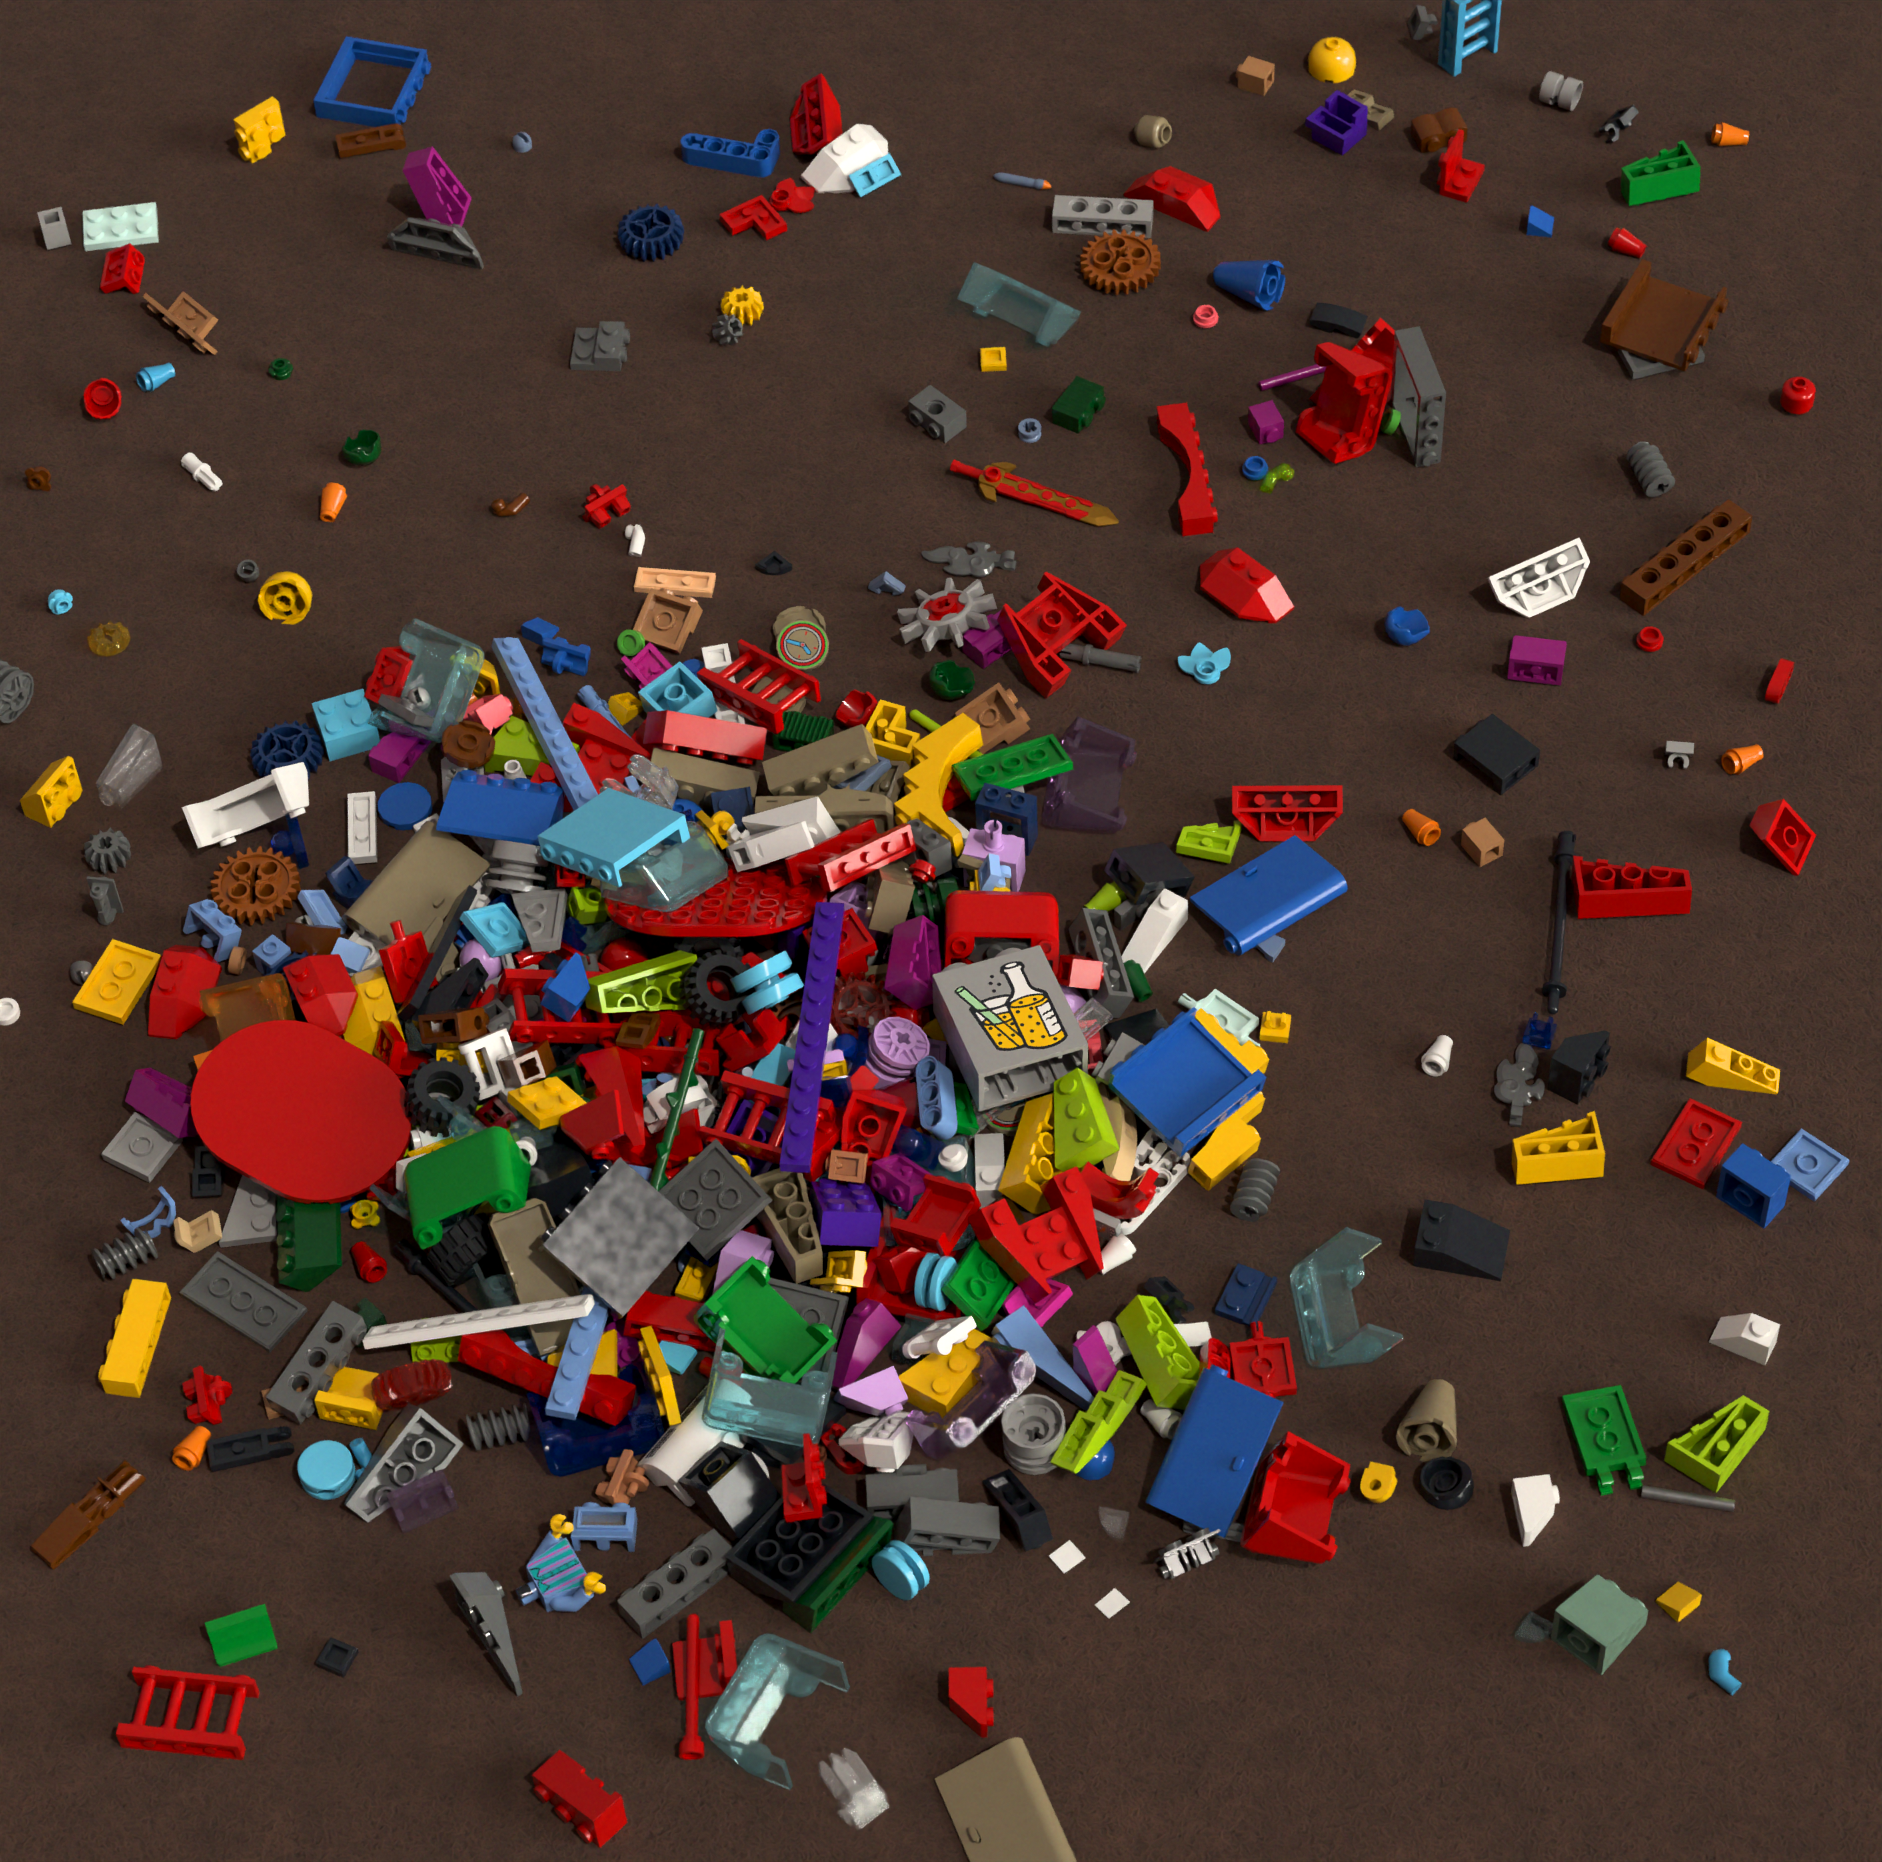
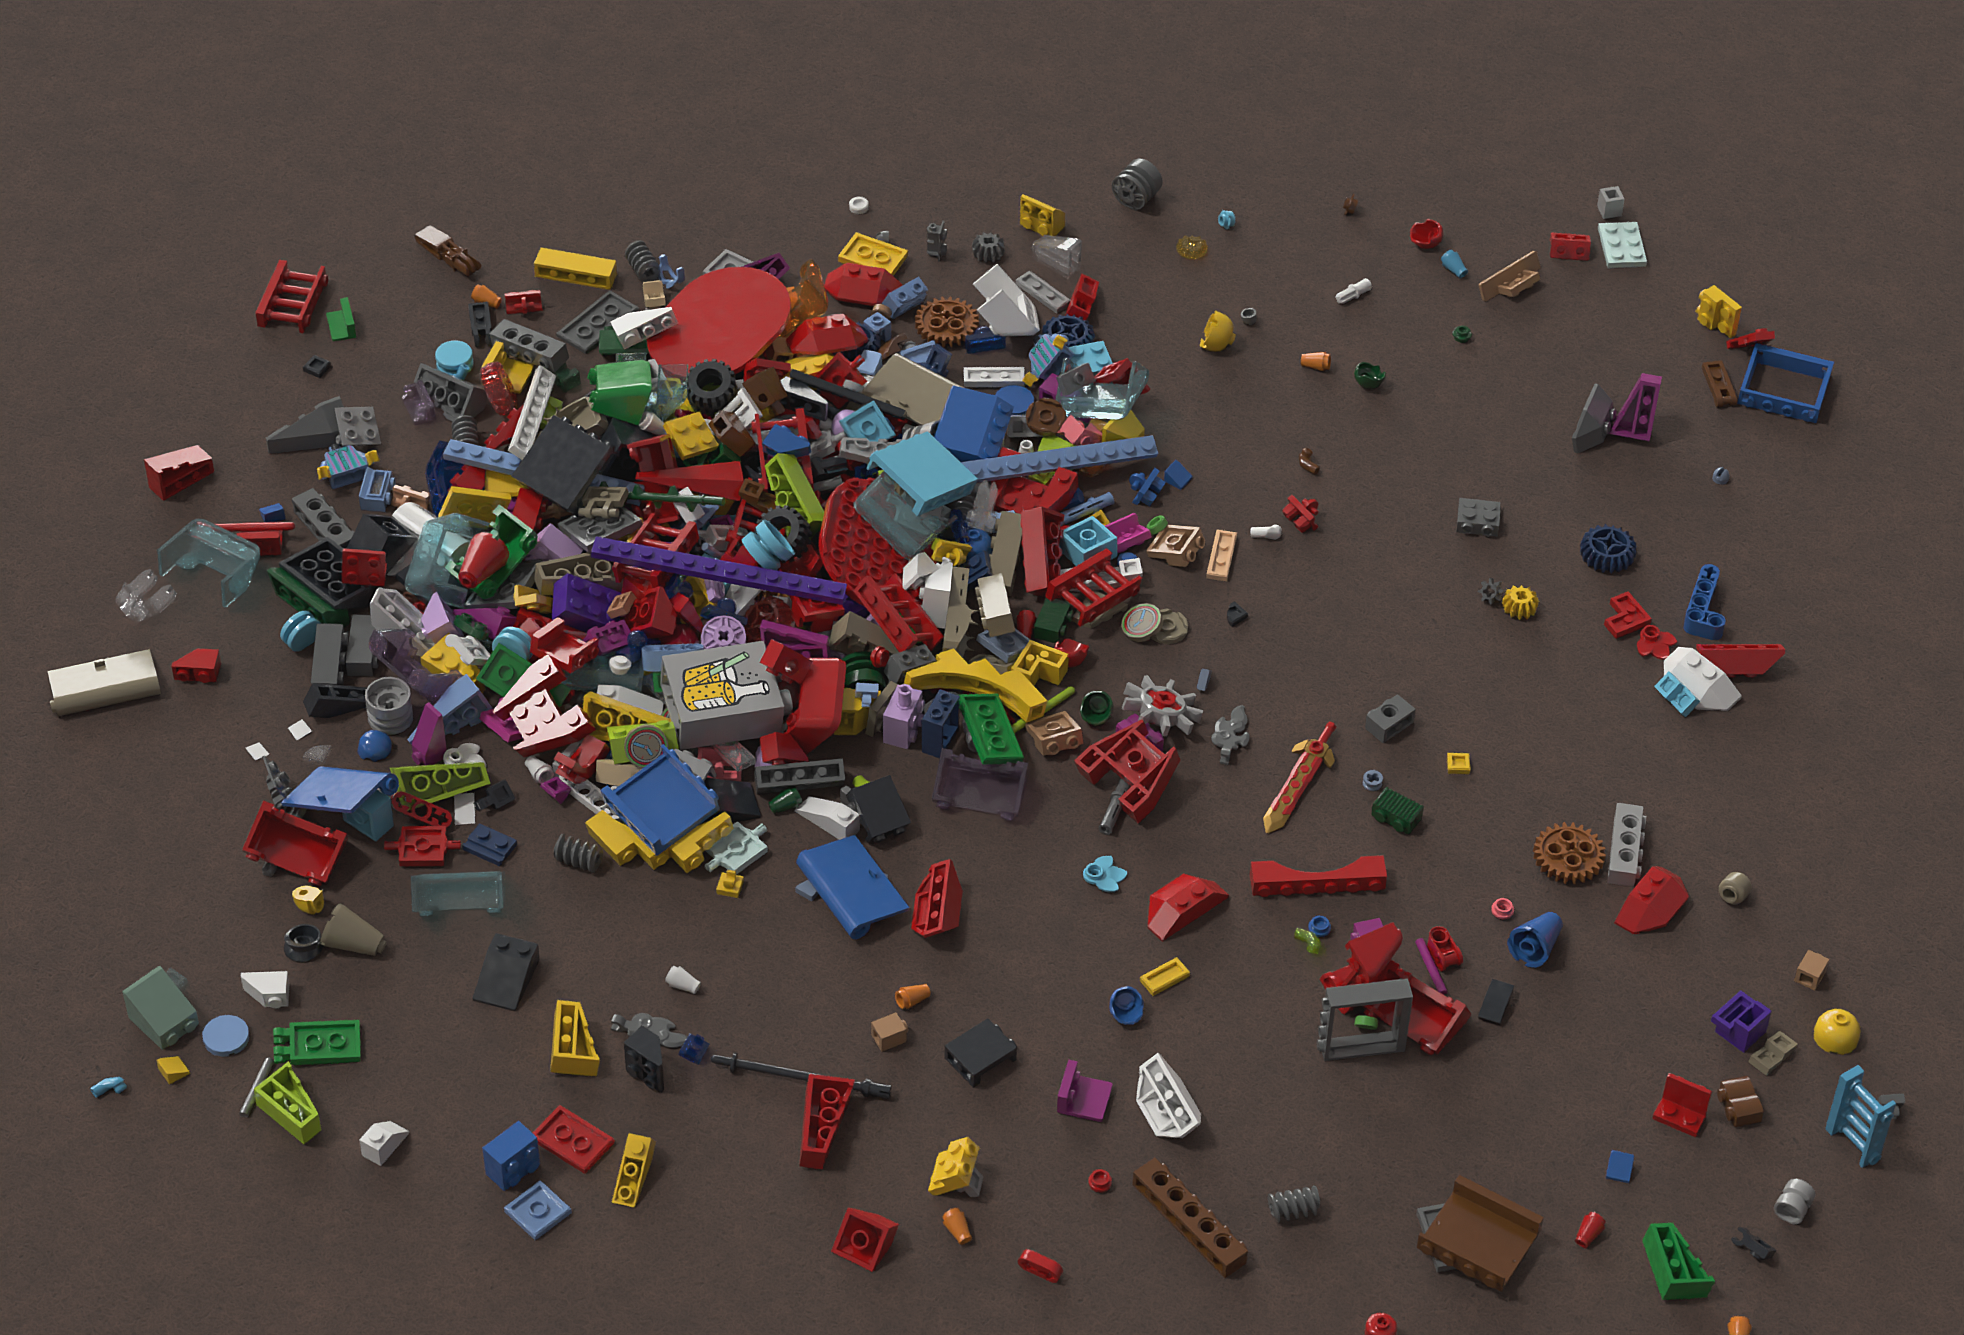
camera: 90 degrees right, 5 degrees down
(192, 790) = (1043, 292): none -> light grey tile
(215, 740) = (1083, 297): none -> red slope
(304, 103) = (1760, 336): none -> red wing
(309, 1206) = (643, 324): none -> white slope
(339, 759) = (1047, 357): none -> torso
(424, 695) = (1091, 389): light grey hinge -> none
(432, 941) = (853, 386): none -> light grey tile
(491, 1561) = (357, 426): none -> light grey hinge
(671, 1183) = (603, 497): none -> dark tan plate
(790, 1332) = (482, 559): none -> red cone
(886, 1350) = (471, 627): none -> dark green plate
(978, 938) = (786, 662): none -> red brick
(1017, 304) = (1522, 786): clear light blue windscreen -> none
(1038, 184) = (1672, 807): sand blue piece -> none
(1096, 1426) = (382, 735): lime slope -> none
(1104, 1103) = (644, 744): none -> tile
(1147, 1228) = (556, 789): none -> magenta slope
(1210, 841) = (915, 858): lime wing -> none
(1274, 361) = (1443, 948): none -> red piece
(1348, 601) = (1164, 976): none -> yellow tile
(1612, 1548) = (225, 1035): none -> medium blue tile
(1673, 759) = (954, 1166): none -> yellow plate

